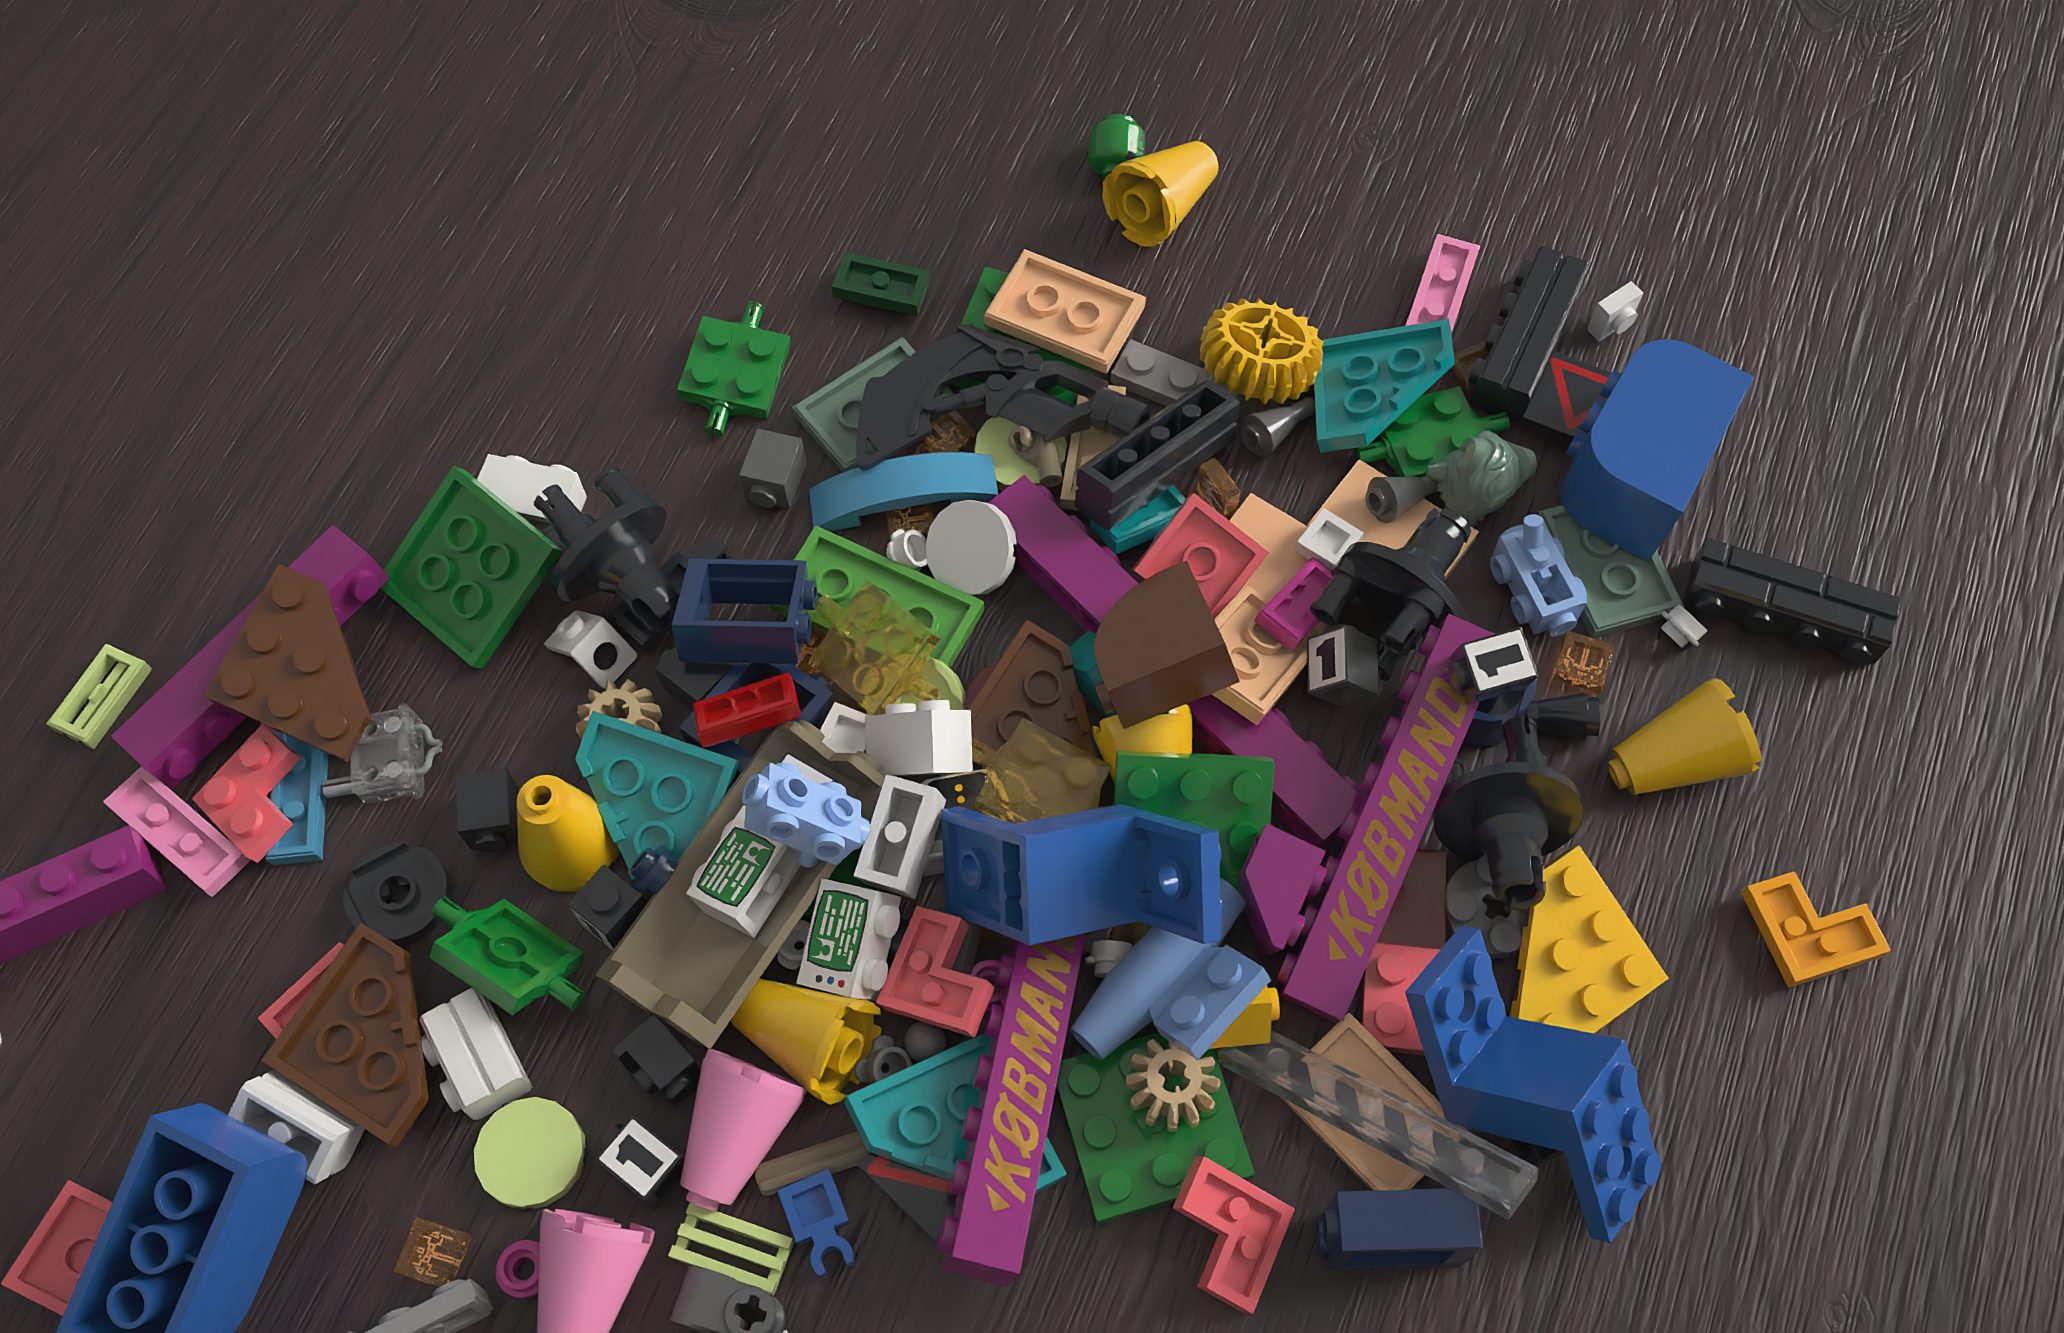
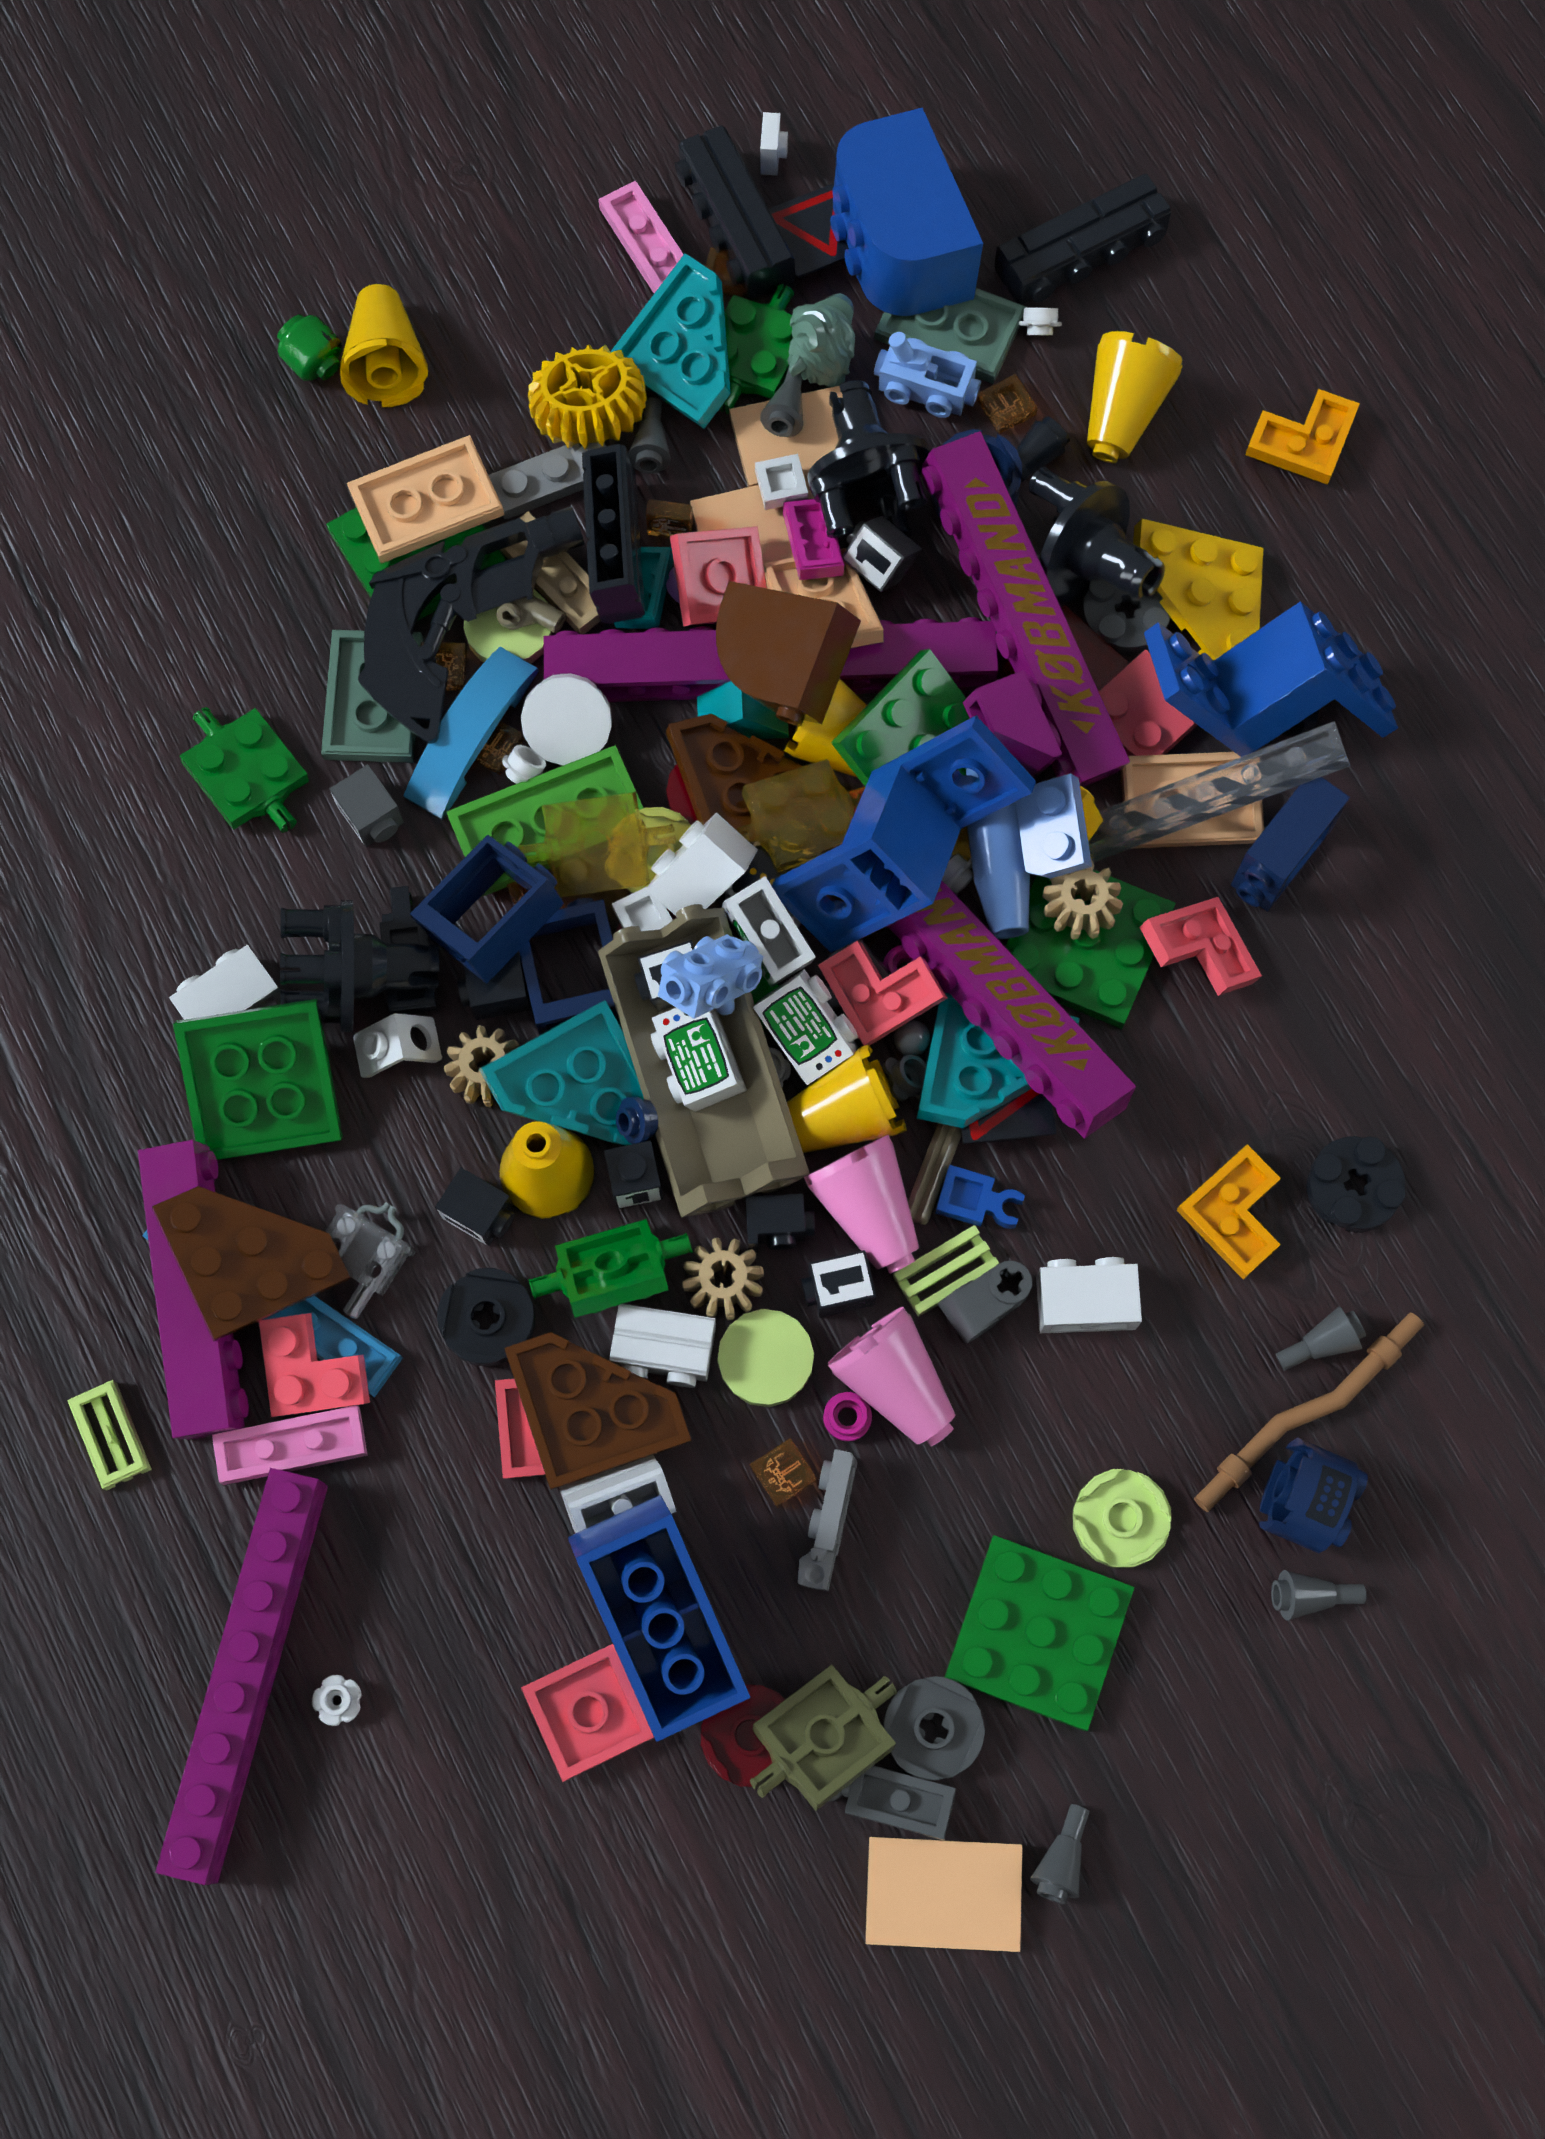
camera: 50 degrees left, 10 degrees up
(564, 1042) = (704, 1279): none -> tan gear
(746, 710) = (572, 964): red plate -> none
(881, 283) = (270, 608): dark green plate -> none
(1492, 666) = (997, 455): brick -> none

